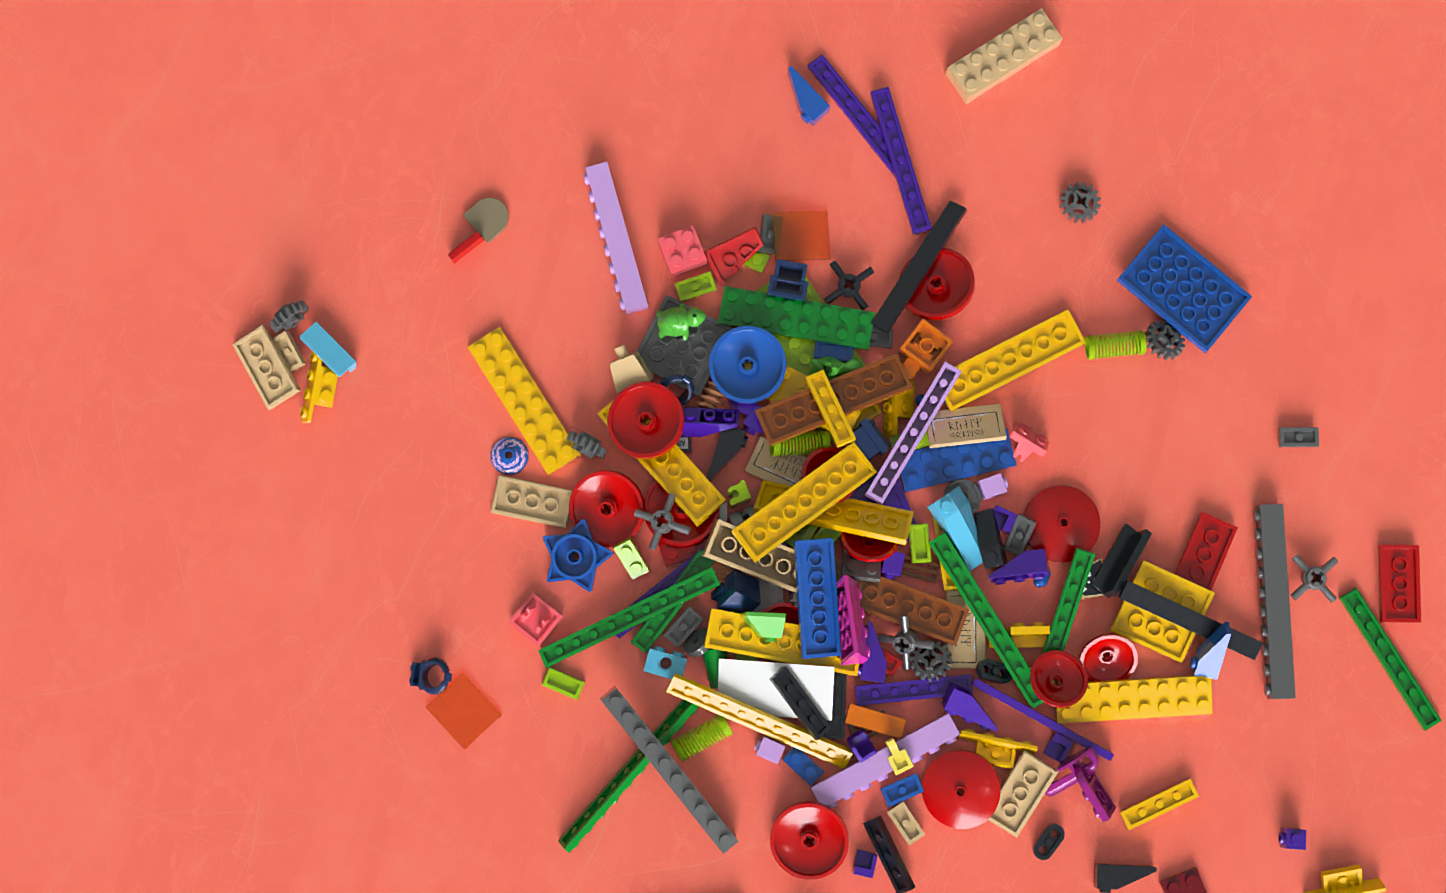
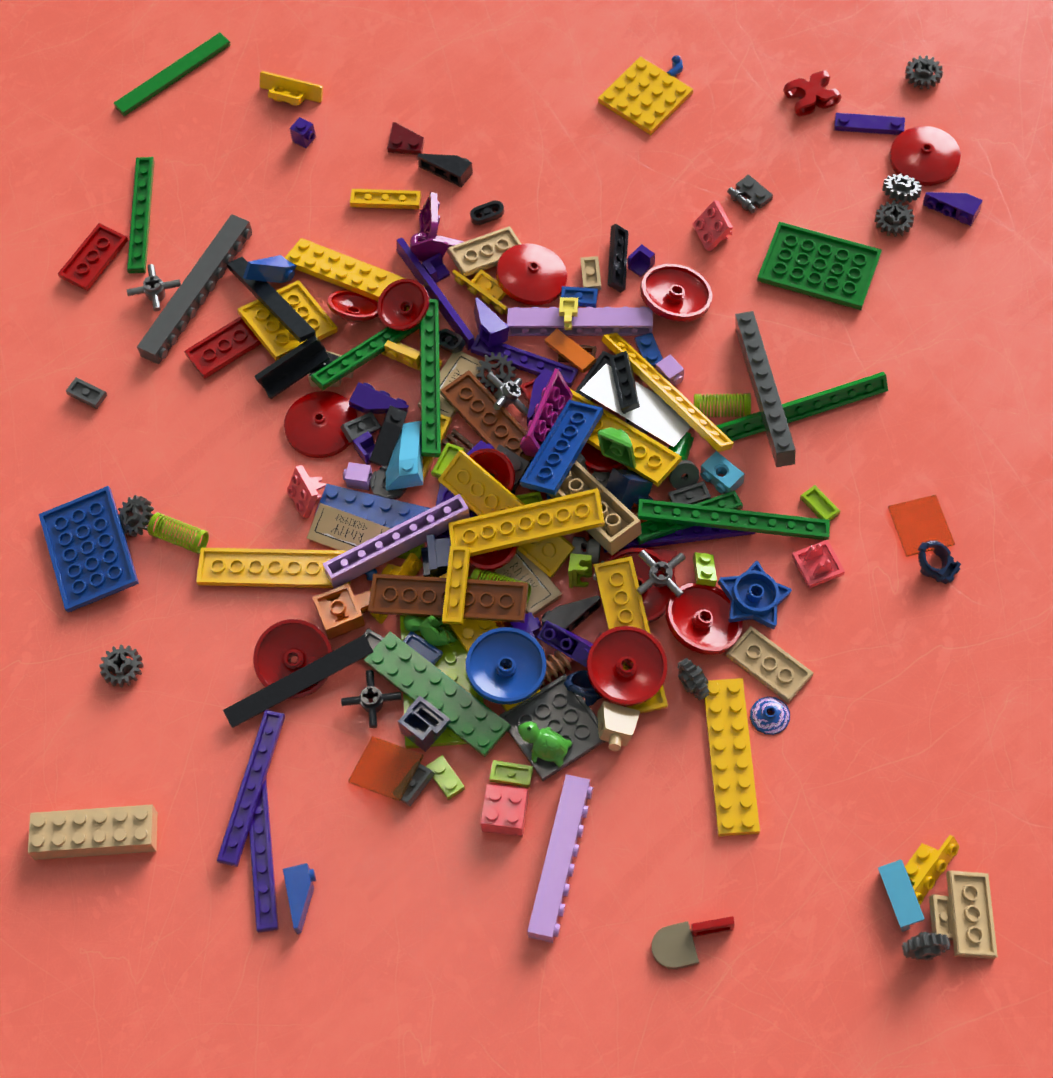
camera: 145 degrees left, 20 degrees down
(733, 253) = (458, 780): red wing -> none
(861, 745) = (592, 336): dark purple panel -> none

